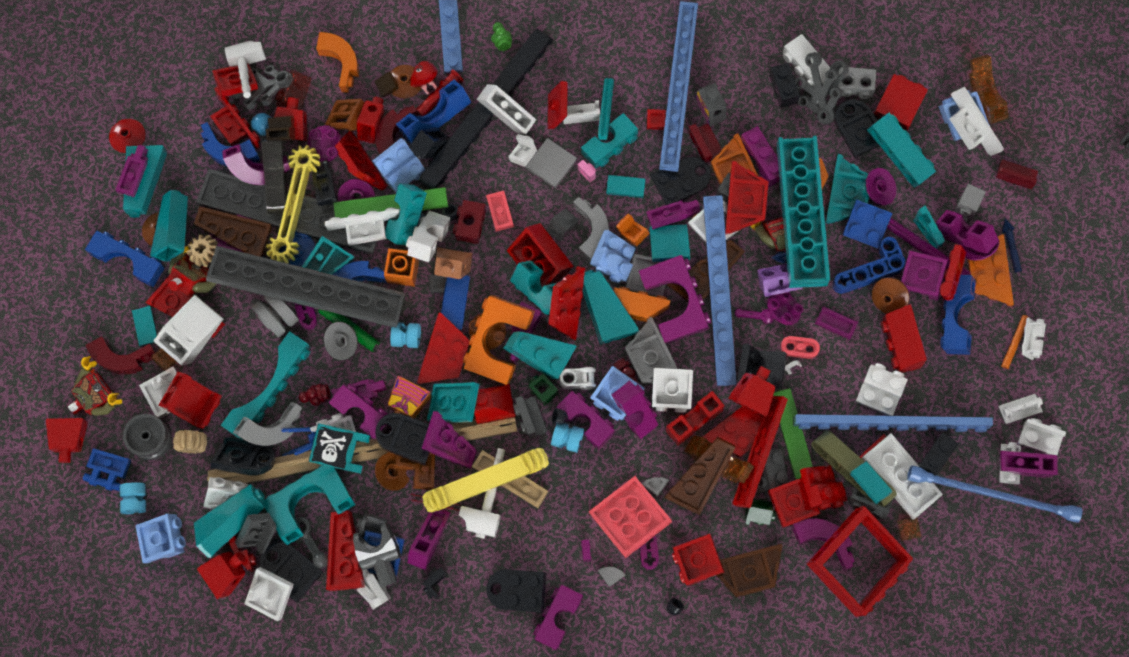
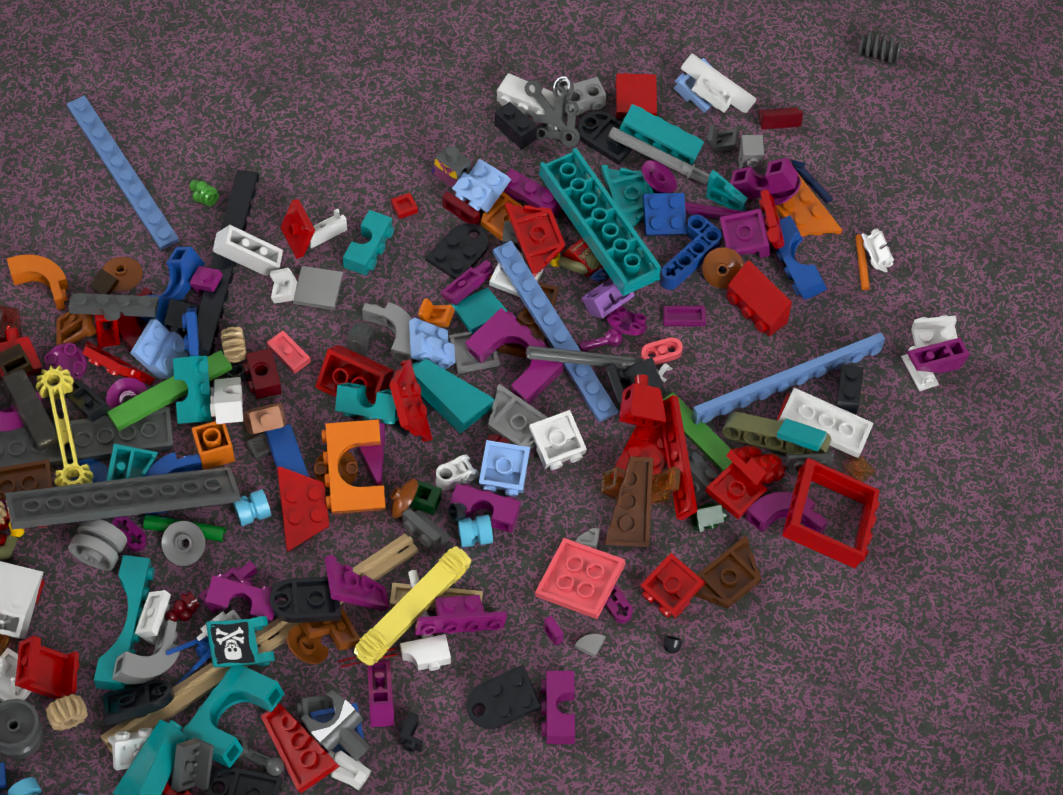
camera: 35 degrees left, 15 degrees down
(289, 392) = (153, 615): none -> white panel
(364, 227) = (152, 420): white bracket -> none
(377, 114) = (112, 305): none -> dark grey hinge
(408, 398) = (286, 564): torso -> none
(422, 74) = (140, 255): red piece -> none
(424, 166) = (191, 341): none -> blue plate
(433, 99) = (163, 273): red pin -> none
(454, 401) = (343, 540): teal tile -> none
(458, 186) = (234, 344): none -> tan gear
(463, 119) = (205, 279): none -> magenta bracket
(494, 404) = (379, 534): red slope -> none
(518, 503) = (459, 615): none -> magenta bracket
(524, 382) = (403, 497): none -> dark orange dish
(540, 352) = (404, 460): teal wedge -> none
(587, 170) = (359, 278): bright pink plate -> none
(605, 109) = (347, 210): teal axle -> none
(625, 186) = (406, 278): teal tile -> none
(636, 407) = (526, 459): magenta arch -> none
(640, 304) = (485, 376): orange slope -> none
(678, 87) = (412, 167): medium blue plate -> none
(695, 419) = (598, 454): red arch -> none
(725, 131) = (481, 186): none -> light blue plate
(728, 328) = (580, 357): none -> dark grey axle
(881, 389) = (761, 354): white plate -> none
(891, 167) = (659, 156): none -> light grey axle
(955, 174) = (723, 140): none -> dark grey bracket
(983, 82) = (702, 47): clear orange arch -> none
(1021, 408) = (902, 316): white hinge -> none
(1069, 512) = (841, 411): medium blue hose -> none

